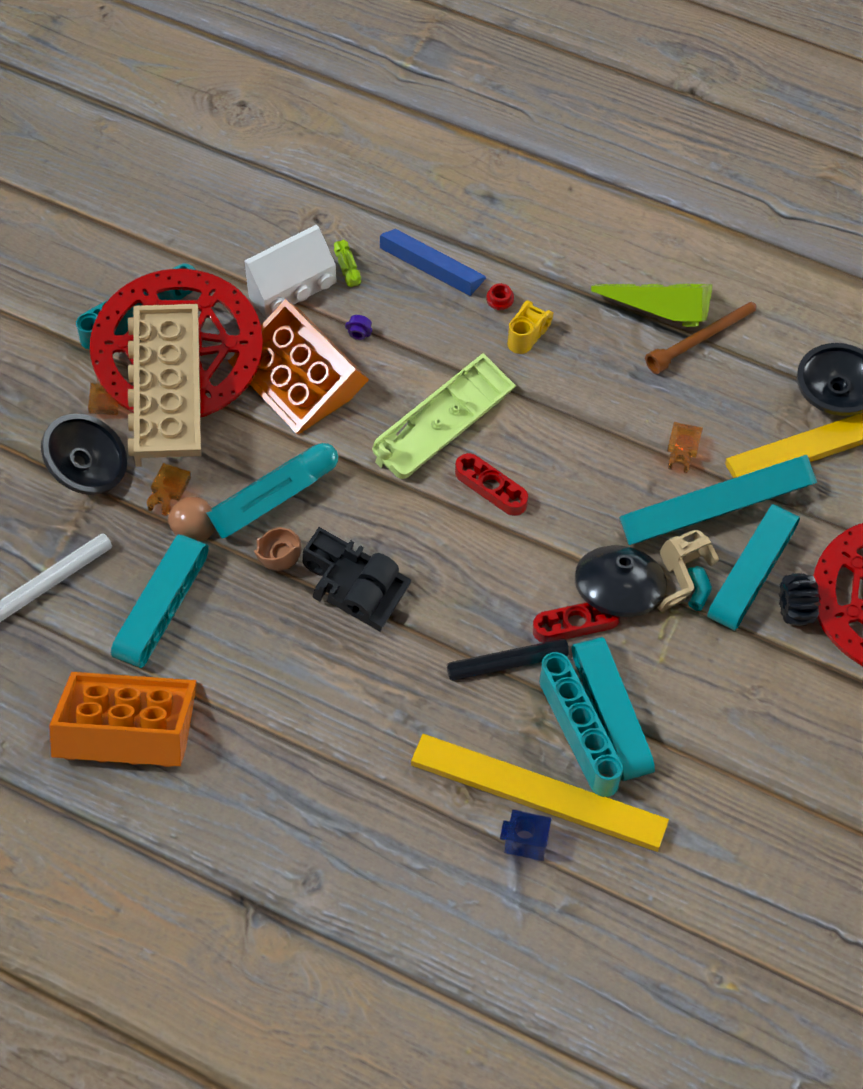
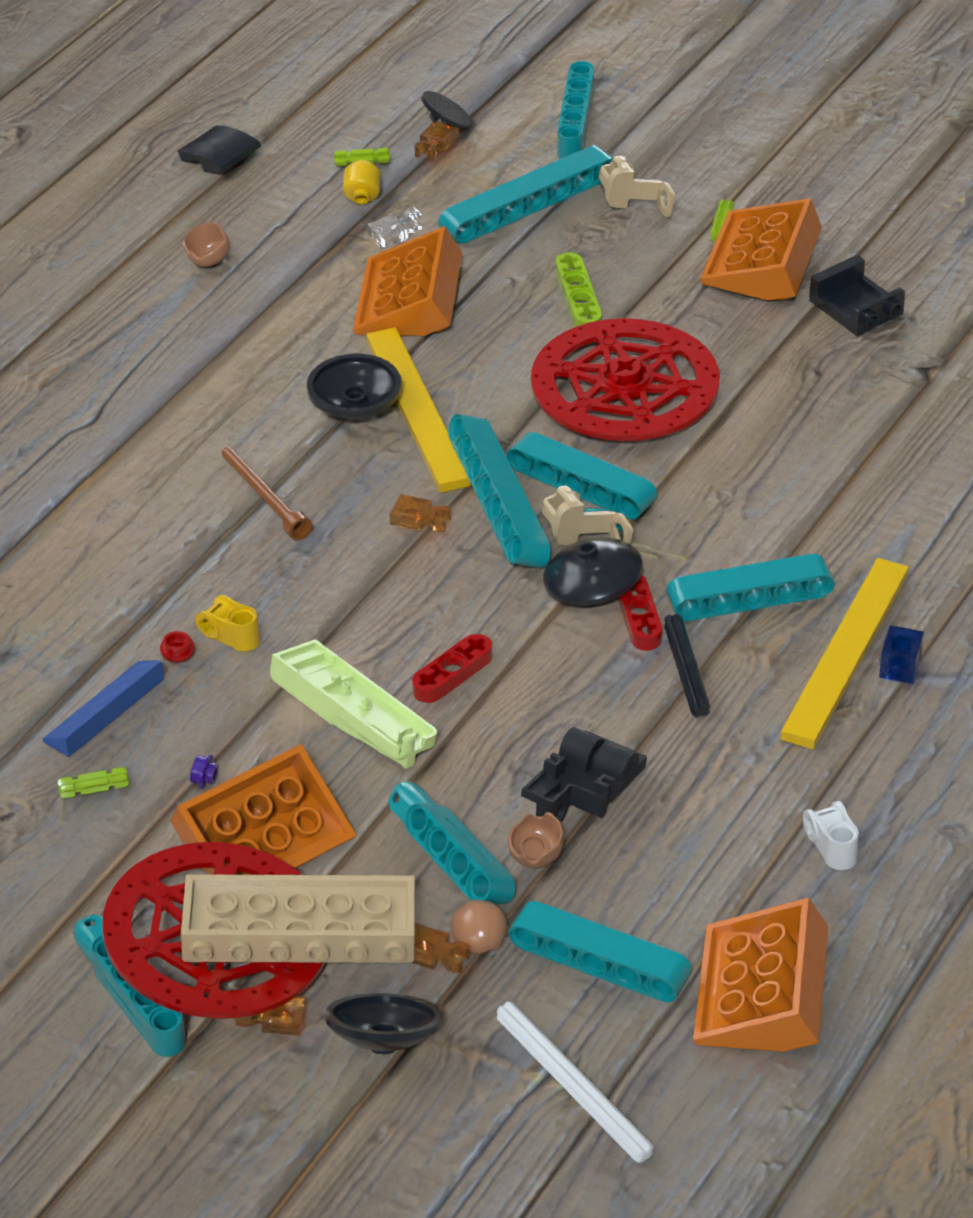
camera: 85 degrees left, 15 degrees down
(290, 271) = (112, 818): white slope -> none
(296, 772) = (833, 835): none -> white piece
(585, 736) = (773, 605): teal beam -> none
(675, 302) = (209, 506): lime wedge -> none
(799, 599) = (630, 440): black gear -> none

